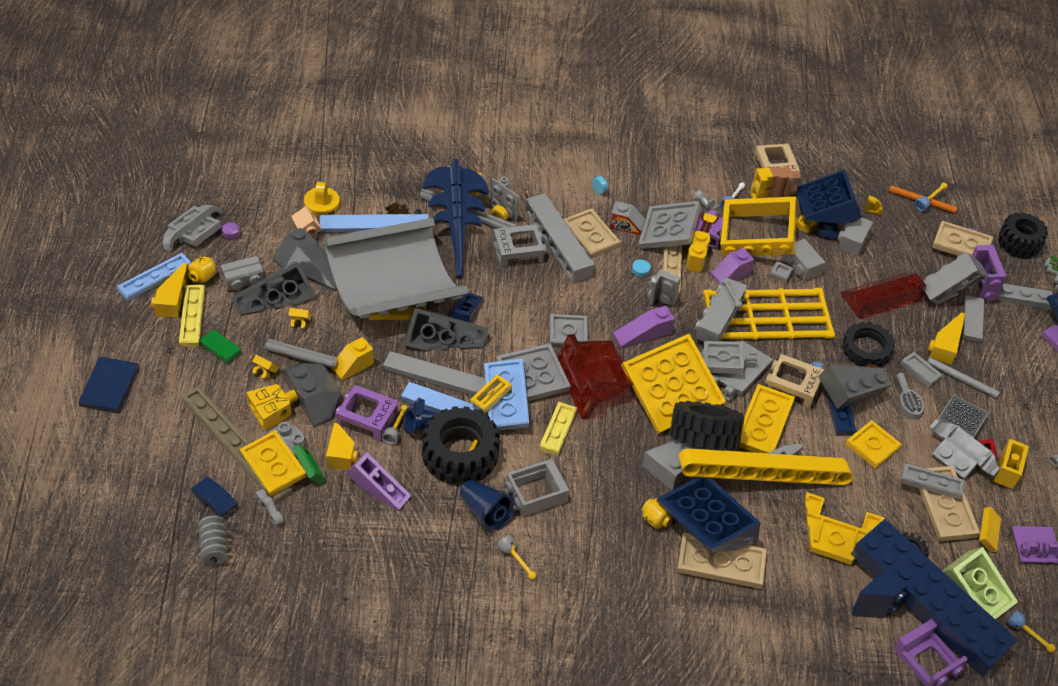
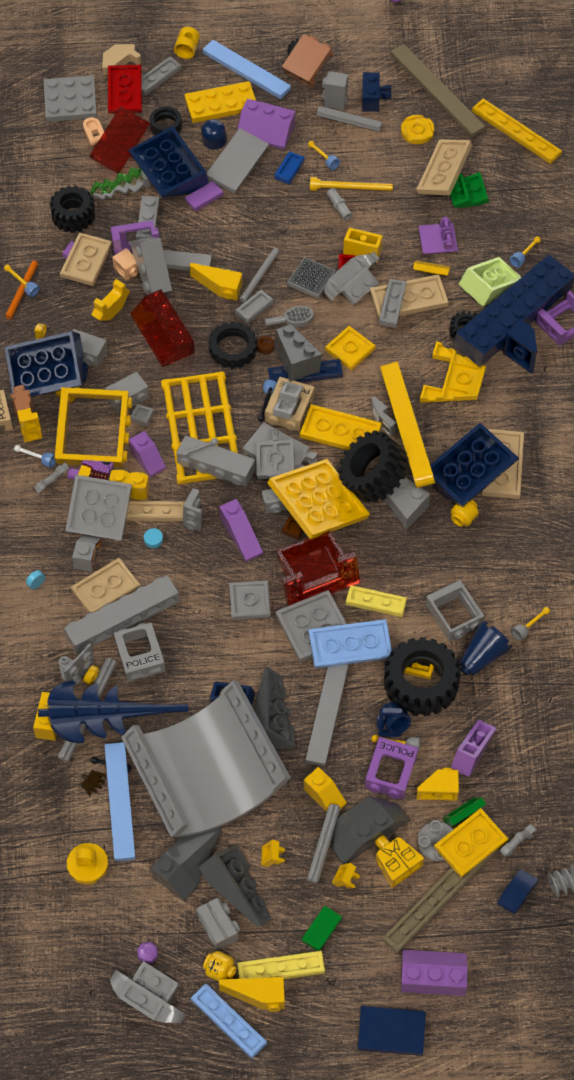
camera: 90 degrees left, 10 degrees up
(152, 419) = (434, 972): none -> medium lavender slope
(307, 221) = (133, 867): light nougat brick -> none
(433, 399) = (363, 706): light blue tile -> none
(493, 396) = (351, 660): yellow tile -> none
(794, 372) = (288, 400): none -> light grey slope
(908, 254) = (112, 303): none -> yellow piece

